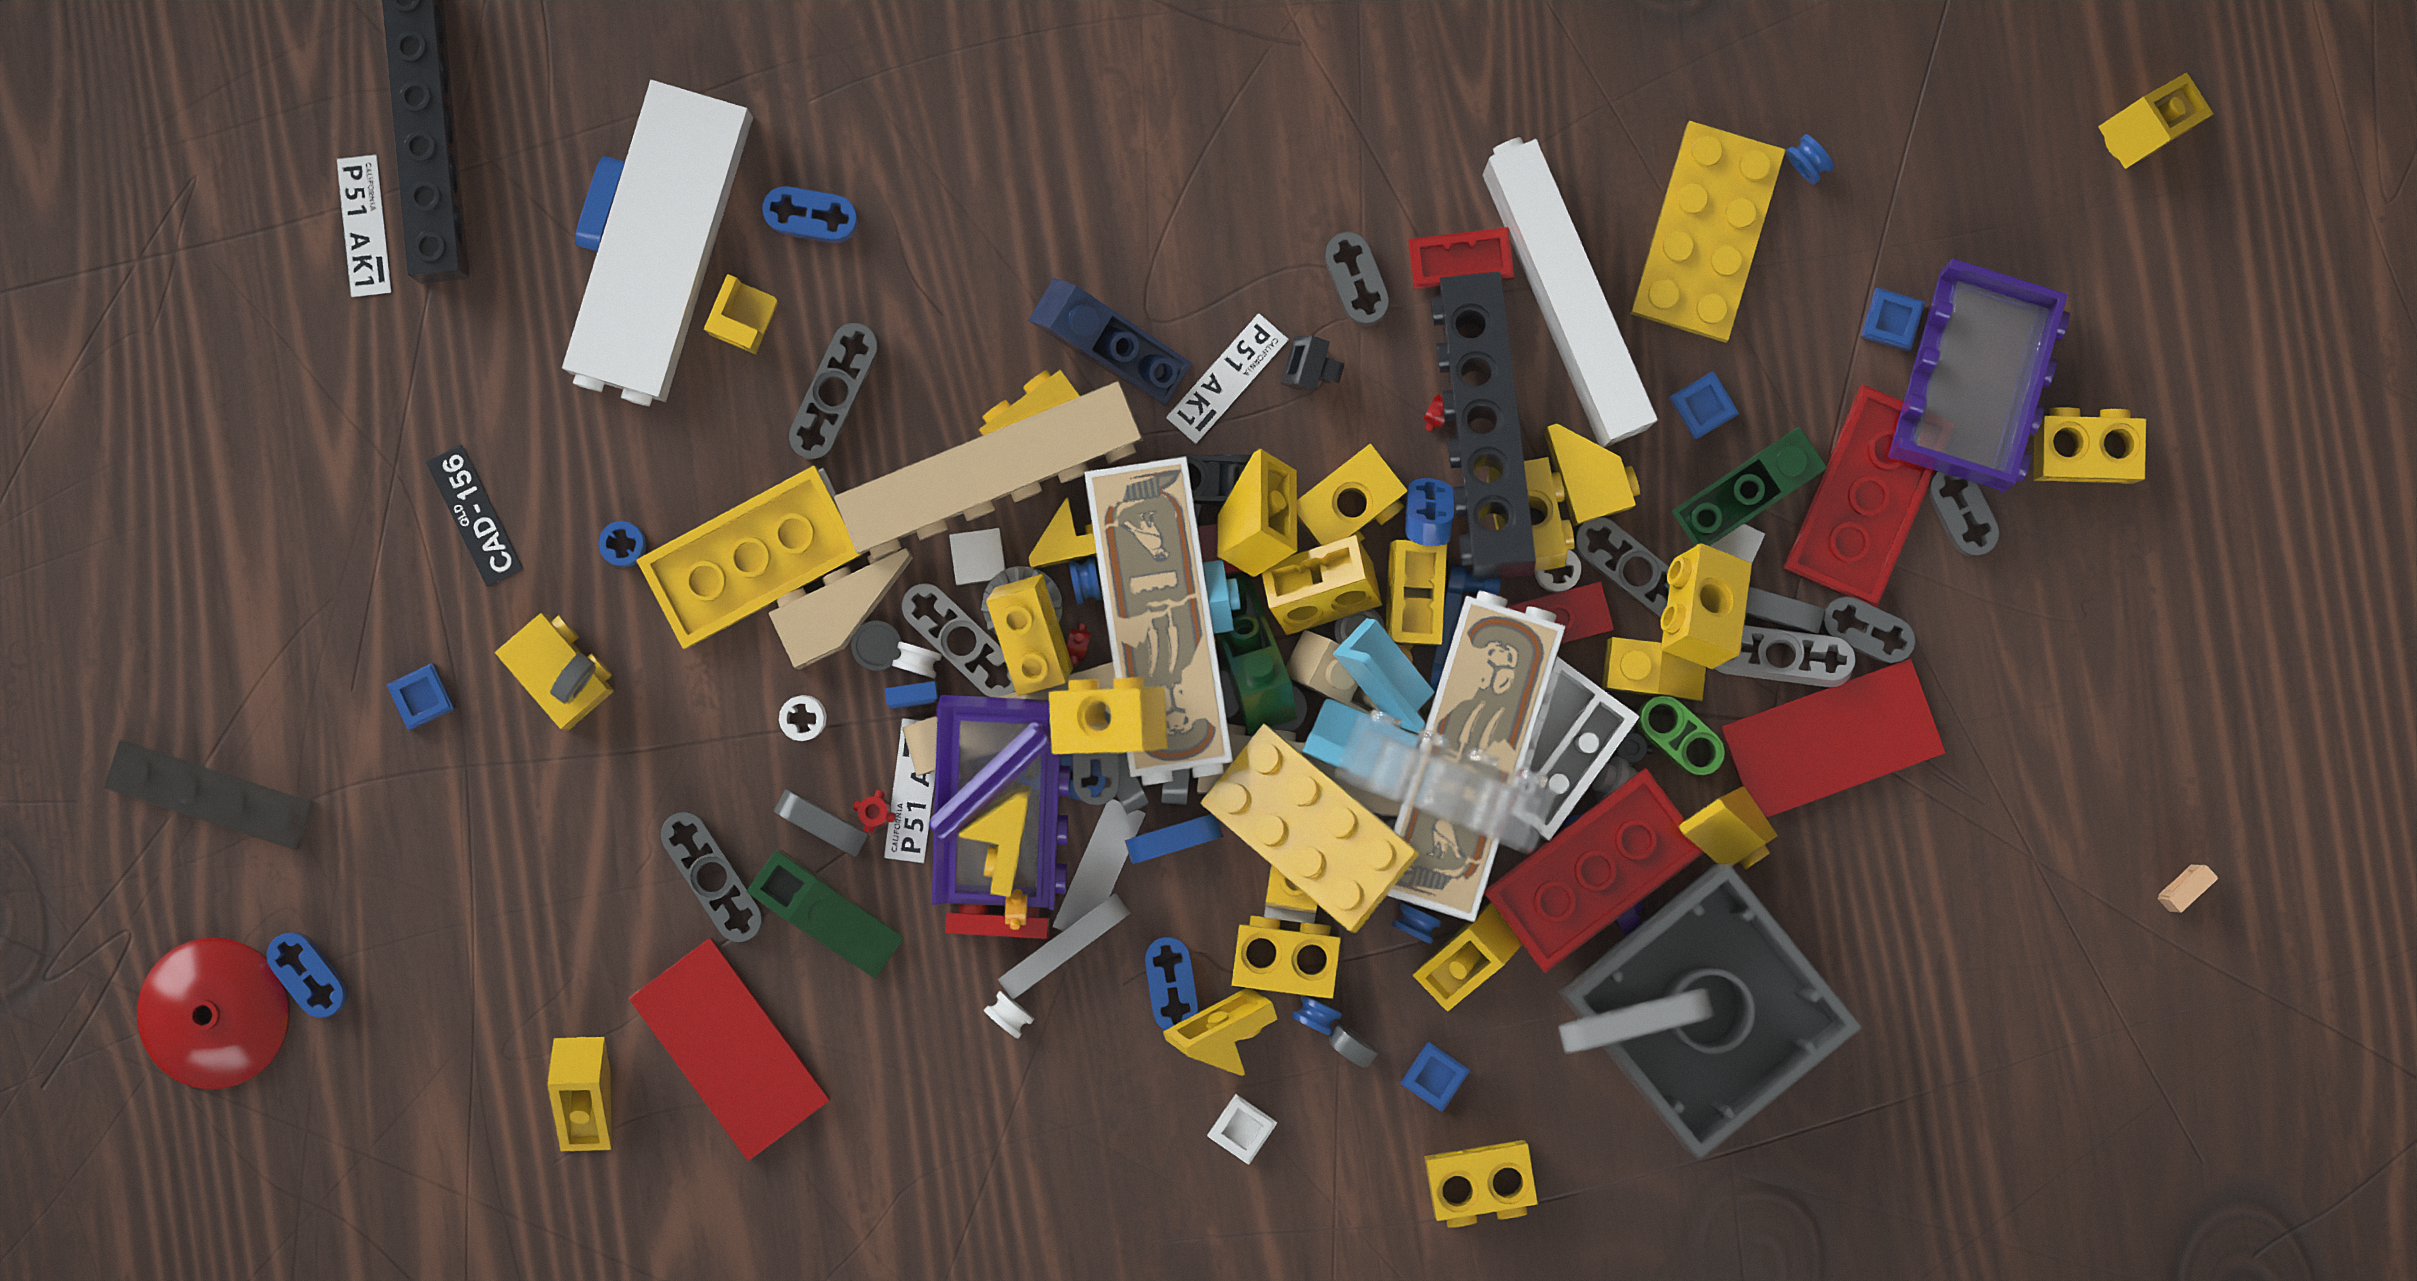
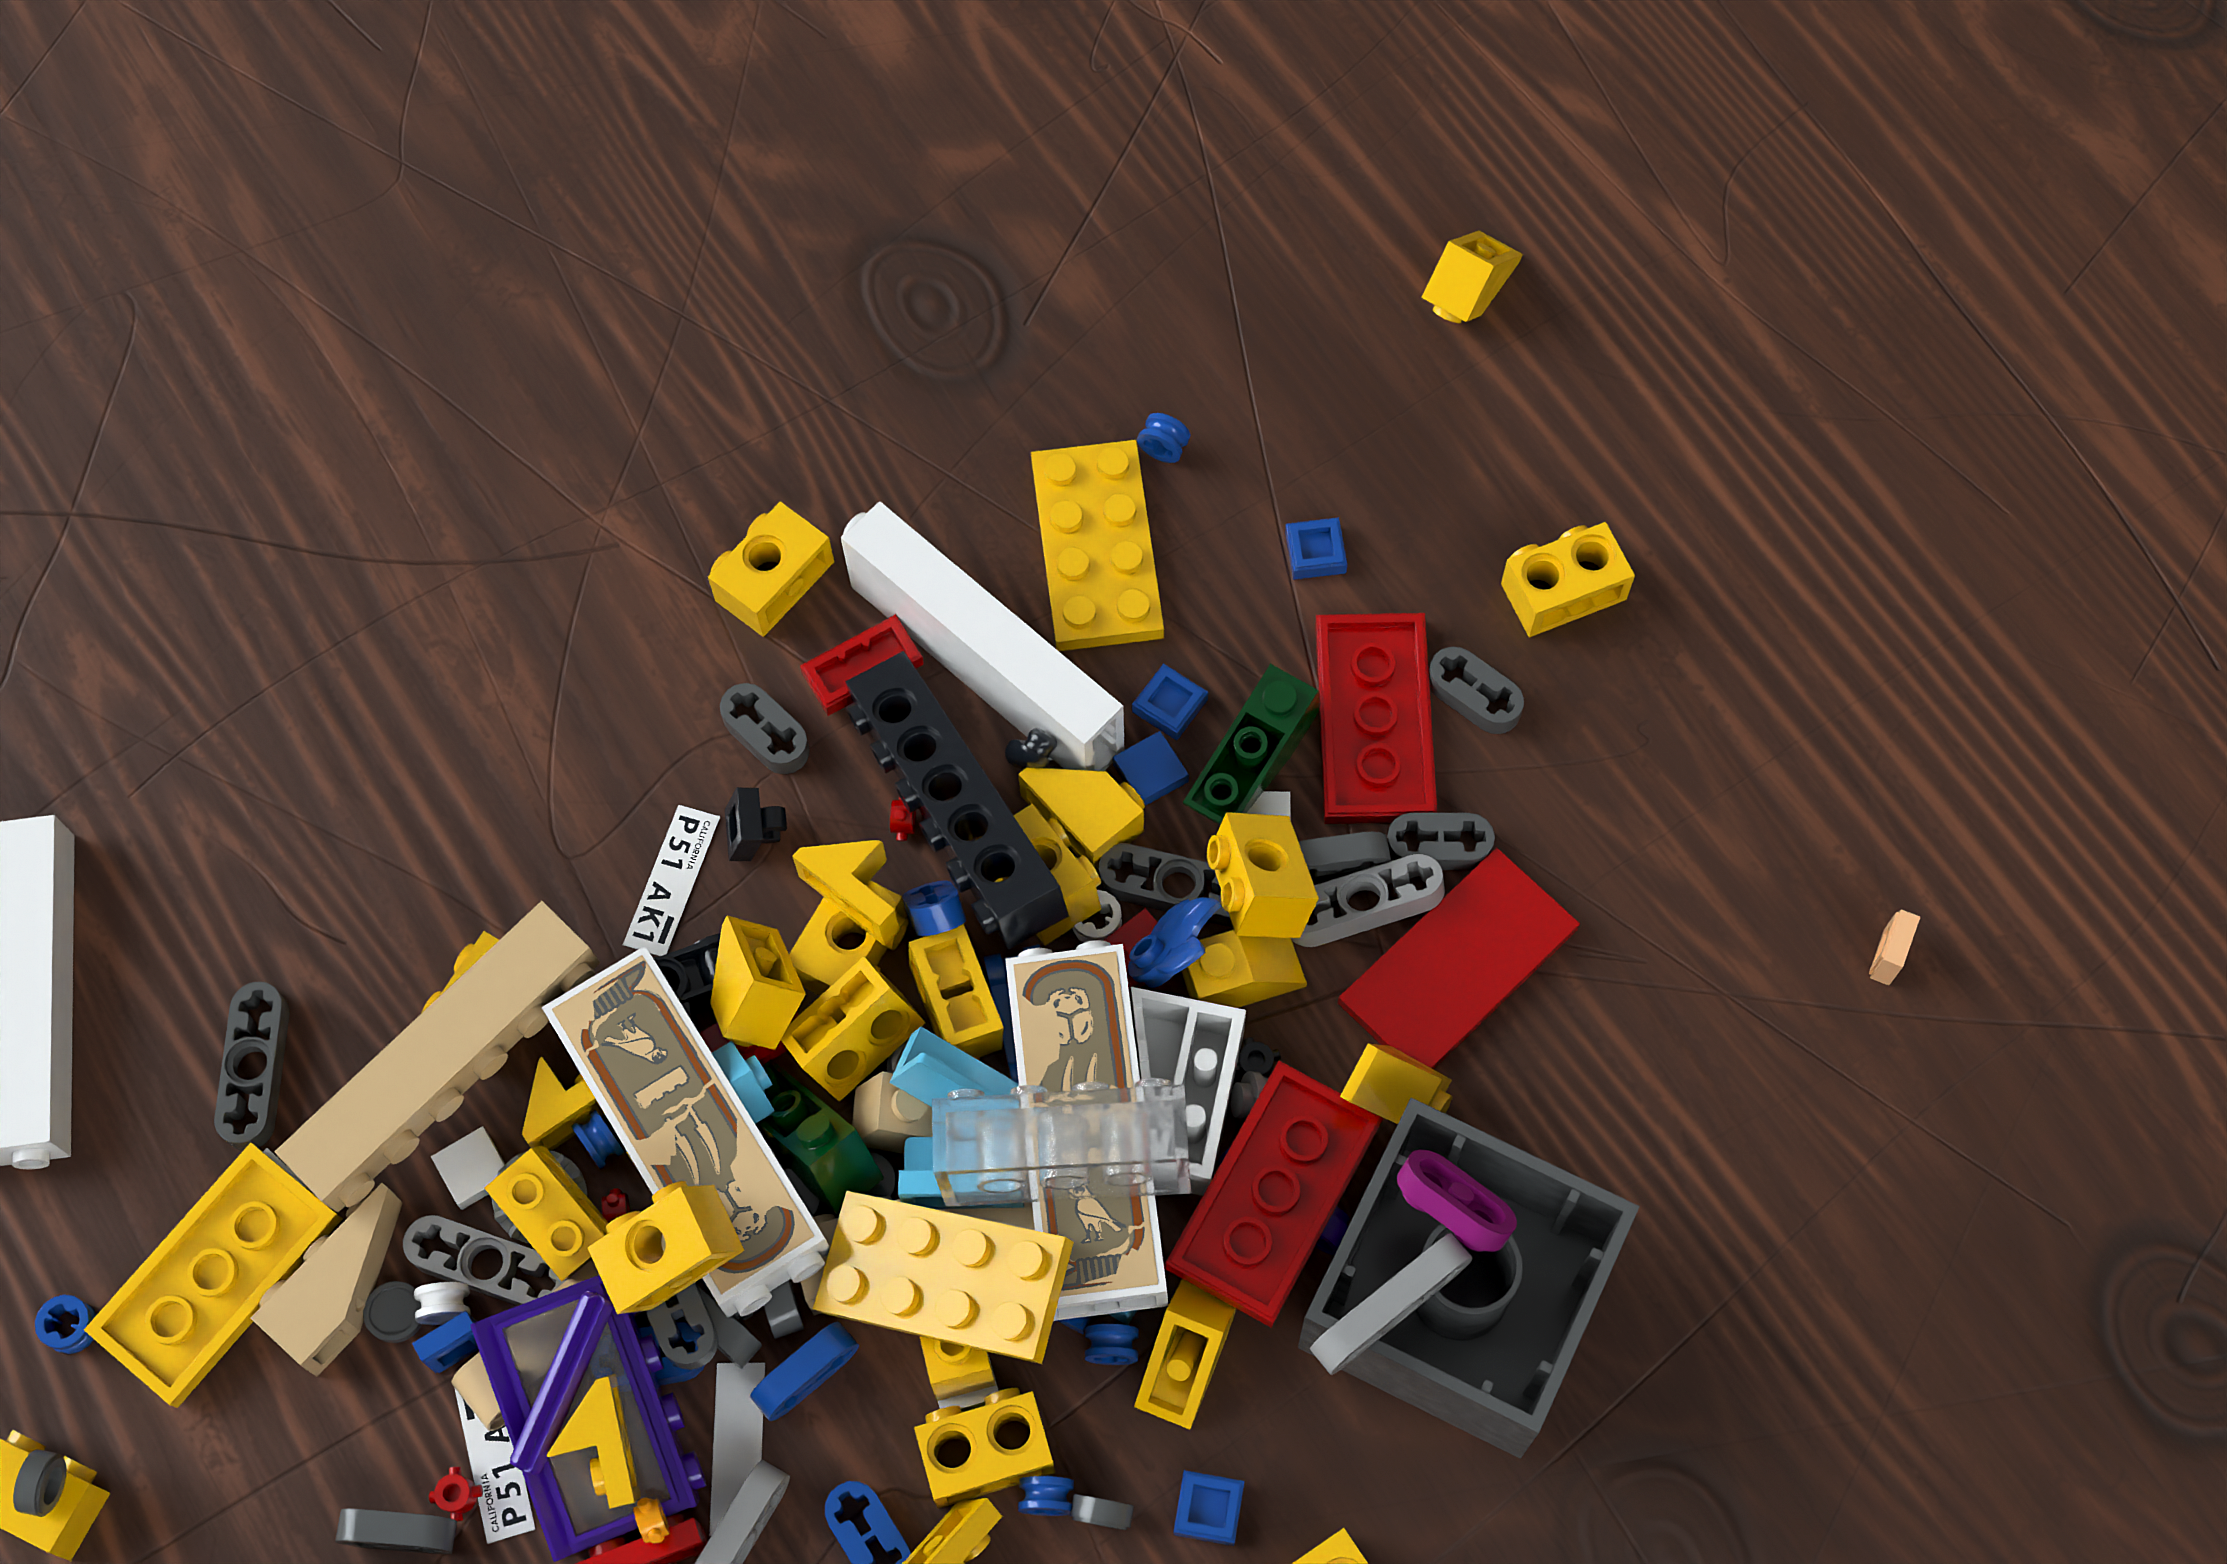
camera: 25 degrees left, 20 degrees down
(740, 315) = (119, 1030): yellow panel -> none
(792, 729) = (344, 1408): white bush -> none
(807, 226) = (165, 900): blue beam -> none
(1109, 340) = (510, 882): dark blue slope -> none
(1363, 457) = (841, 877): none -> yellow slope
(1403, 159) = (766, 596): none -> yellow brick
(1567, 409) = (1031, 752): none -> black arm
(1607, 629) = (1172, 942): none -> blue plate
(1660, 459) = (1151, 768): none -> blue tile
(1684, 730) = (1303, 1012): bright green beam -> none
(1722, 965) = (1456, 1201): none -> magenta plate
(1980, 376) = (1426, 554): window -> none

